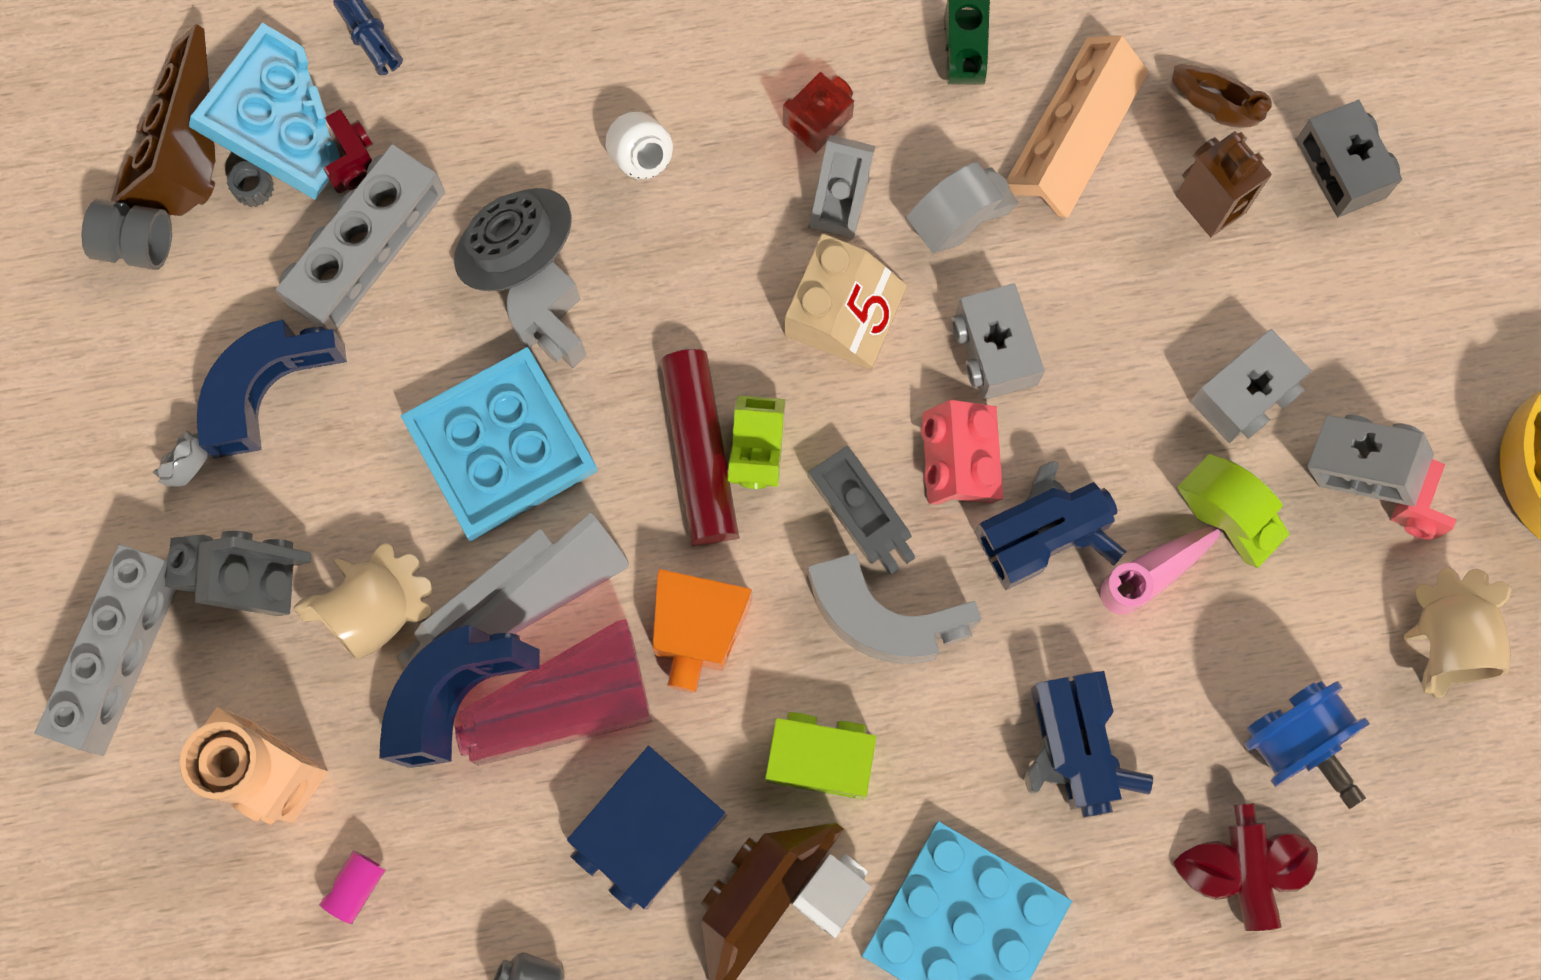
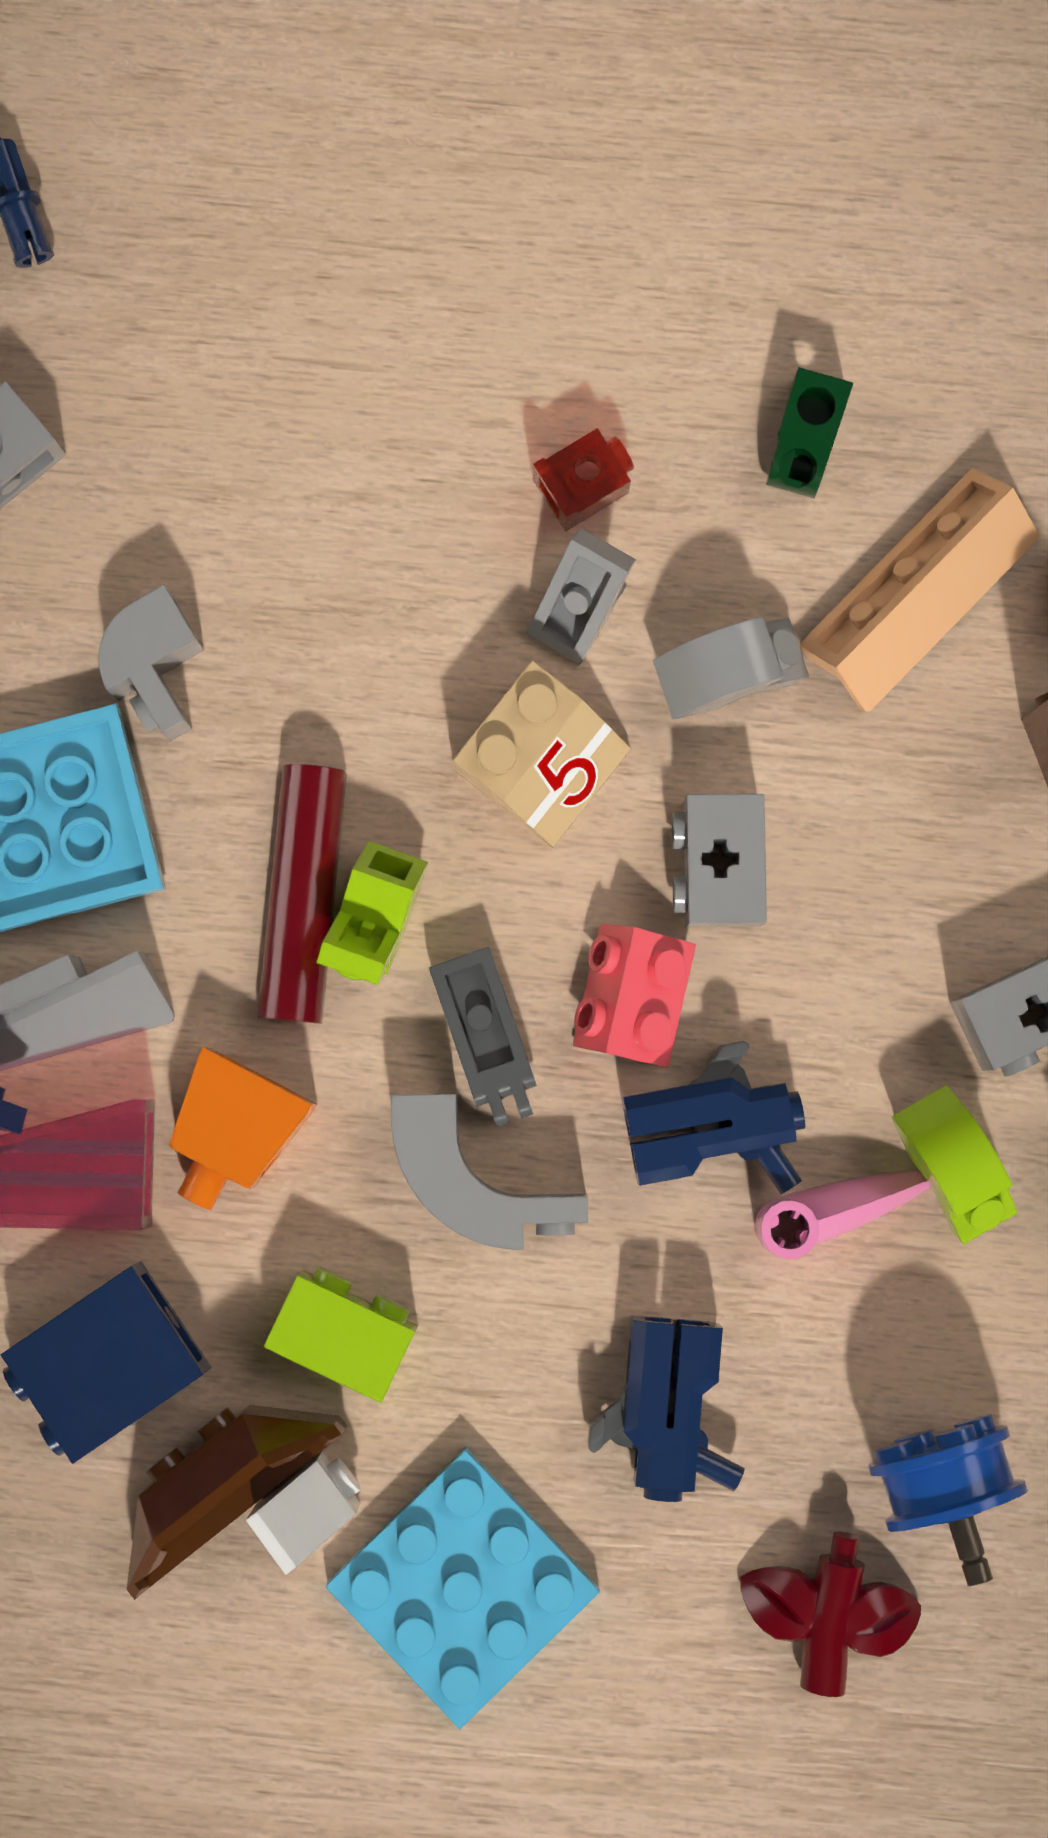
camera: 15 degrees right, 10 degrees up
(513, 239) = (145, 542): dark grey wheel -> none
(639, 145) = (330, 466): white head -> none

